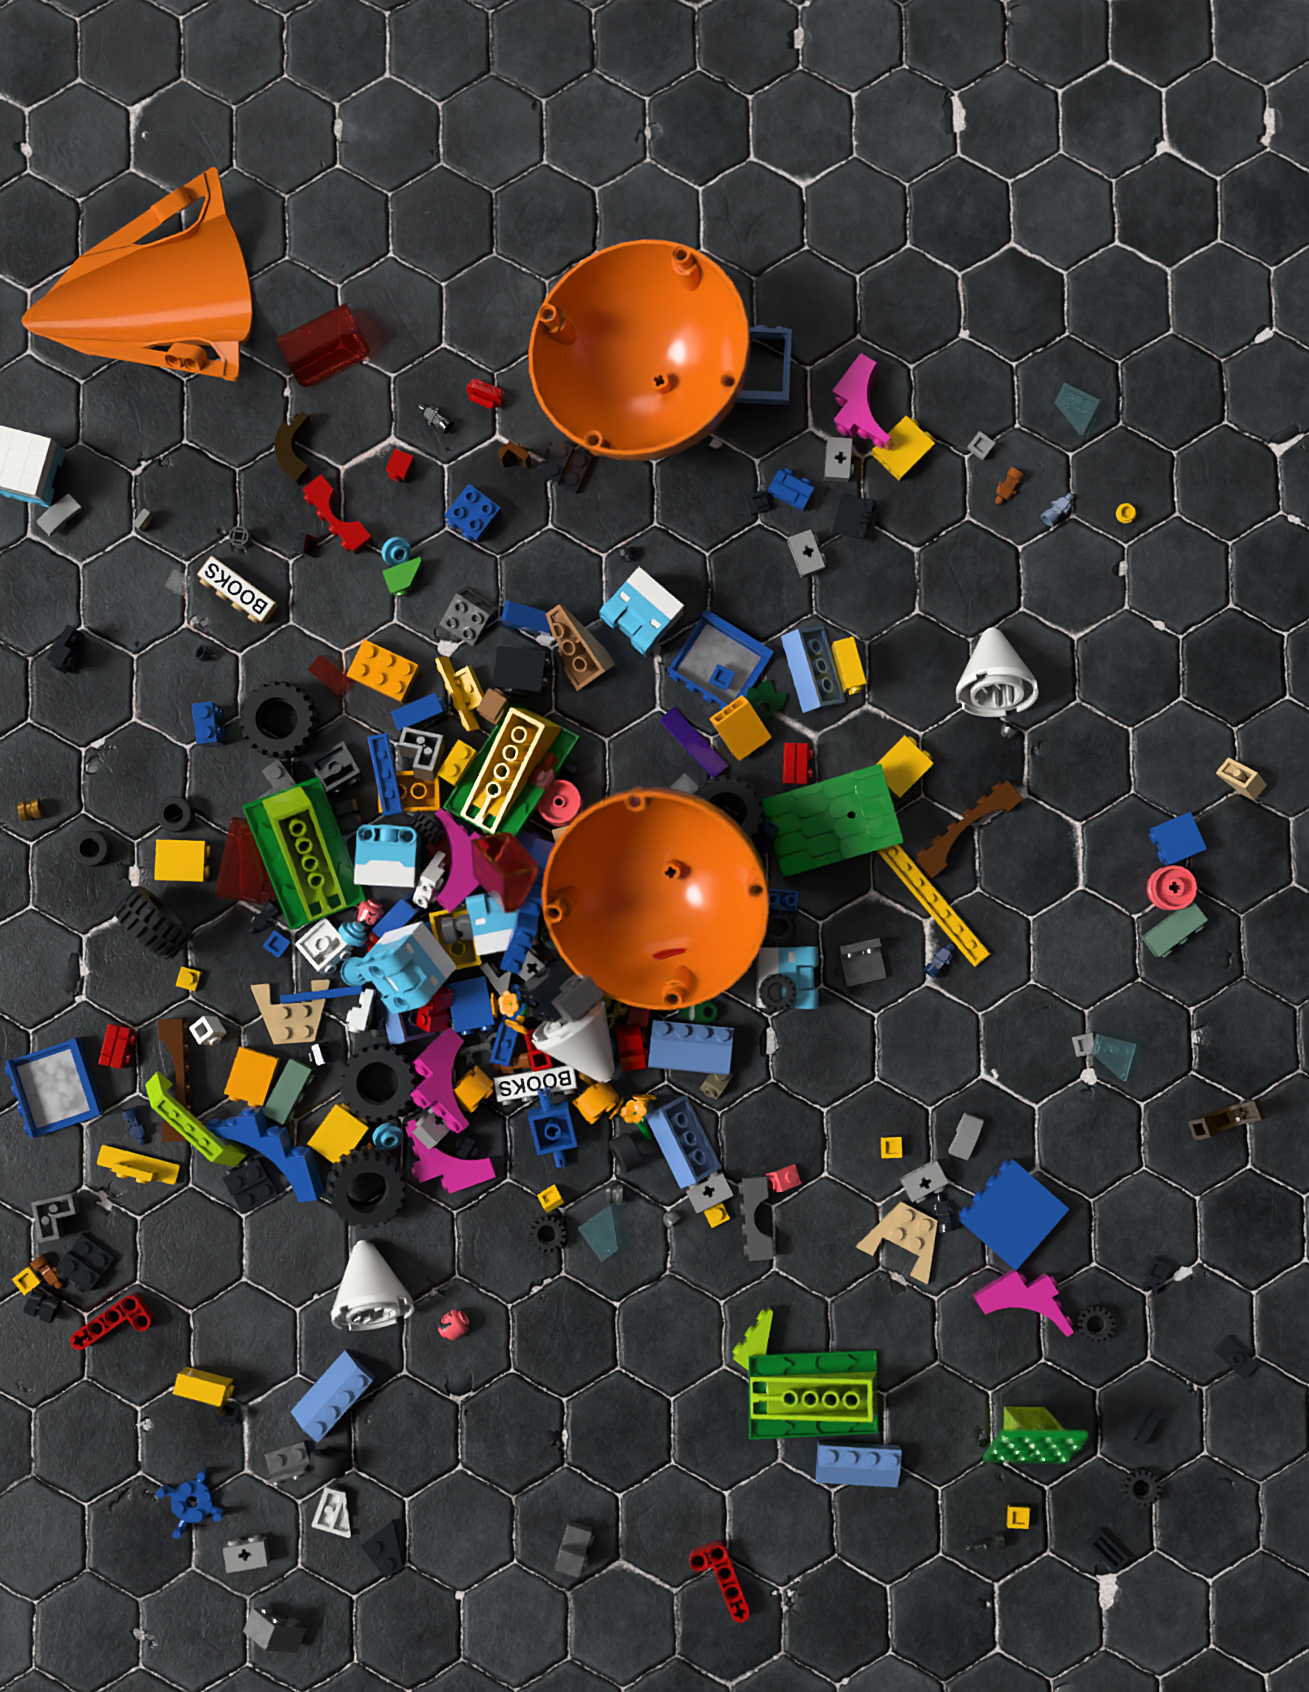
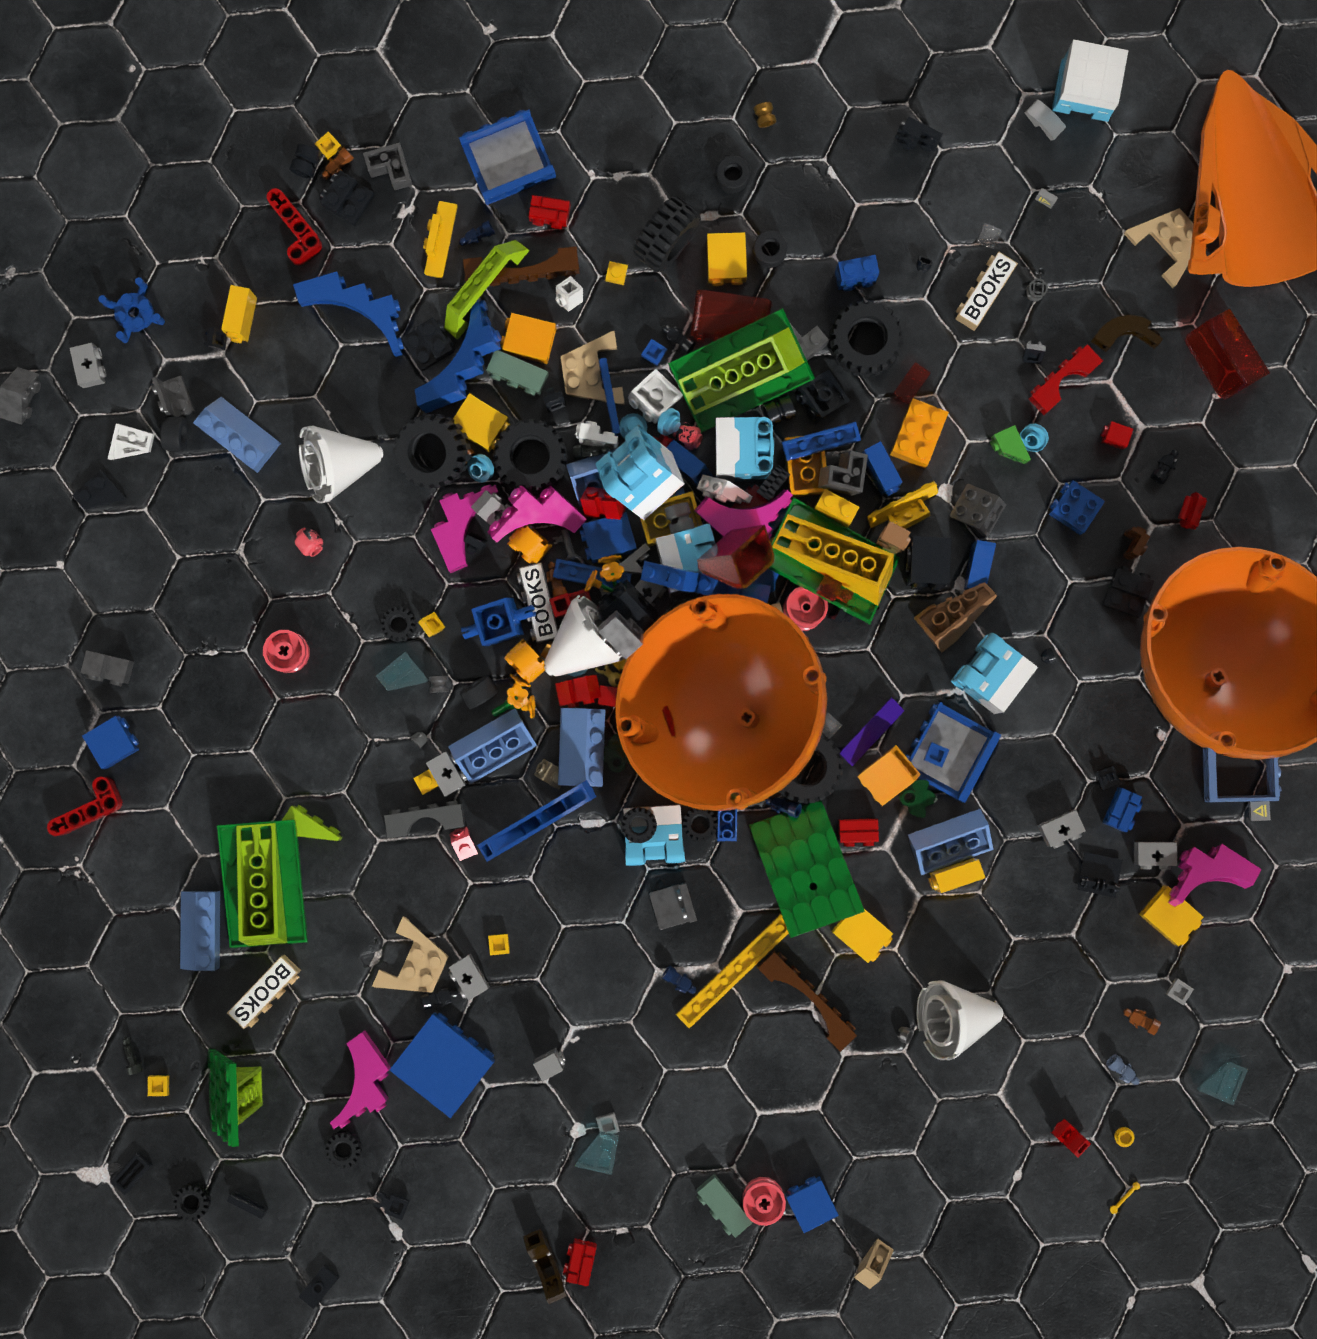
camera: 85 degrees right, 0 degrees up
(184, 1287) = (330, 290): none -> blue arch
(191, 390) = (1174, 235): none -> tan wing
(565, 1367) = (277, 644): none -> coral wheel
(653, 1548) = (111, 742): none -> blue brick
(765, 1099) = (537, 821): none -> blue arch
(801, 349) = (1259, 811): none -> light grey tile
(926, 1398) = (264, 991): none -> brick
(966, 1136) = (513, 1015): light grey slope -> none
(1018, 1101) = (549, 1064): none -> light grey brick
(1124, 568) = (1070, 1137): none -> red brick
(1198, 529) = (1114, 1209): none -> yellow hinge
(1224, 1081) = (581, 1262): none -> red brick

